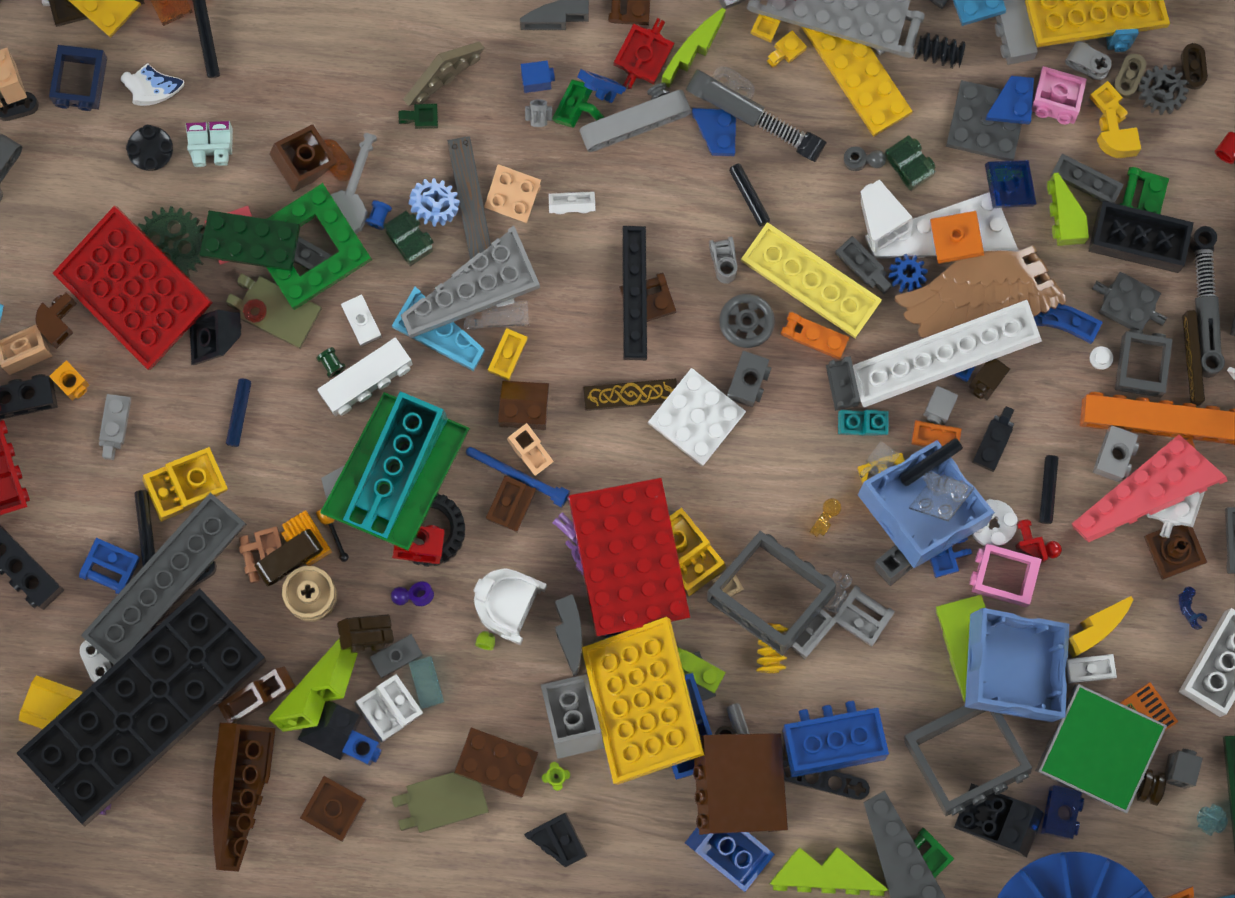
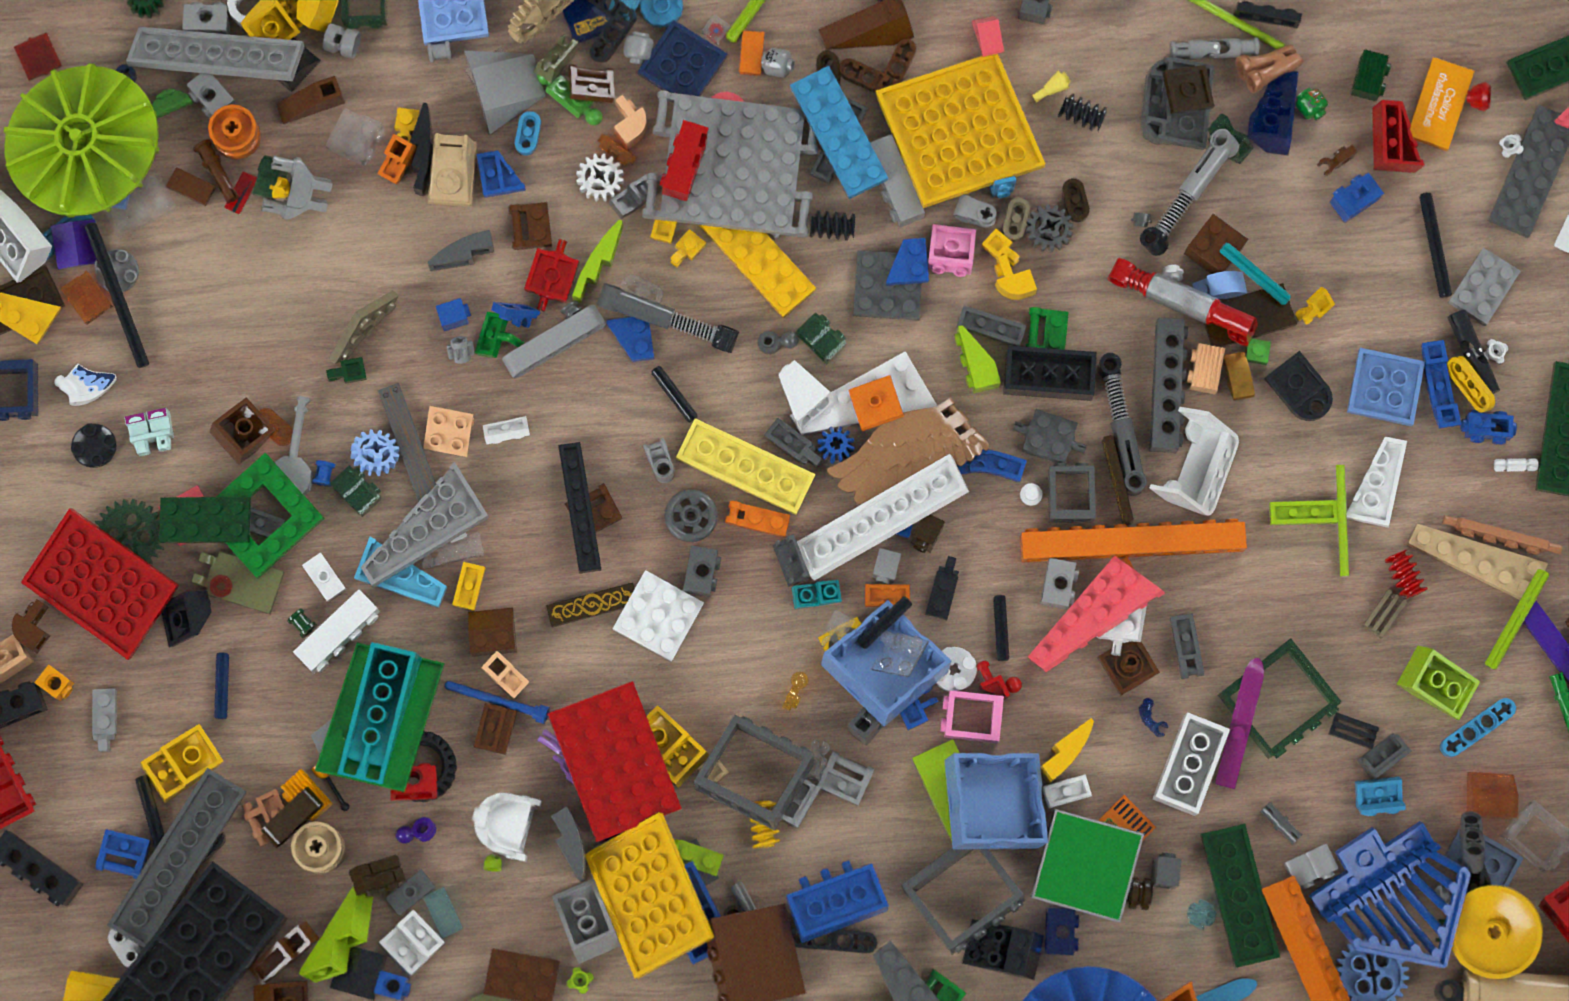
camera: 10 degrees left, 0 degrees up
(1010, 184) = (919, 342): clear blue tile -> none

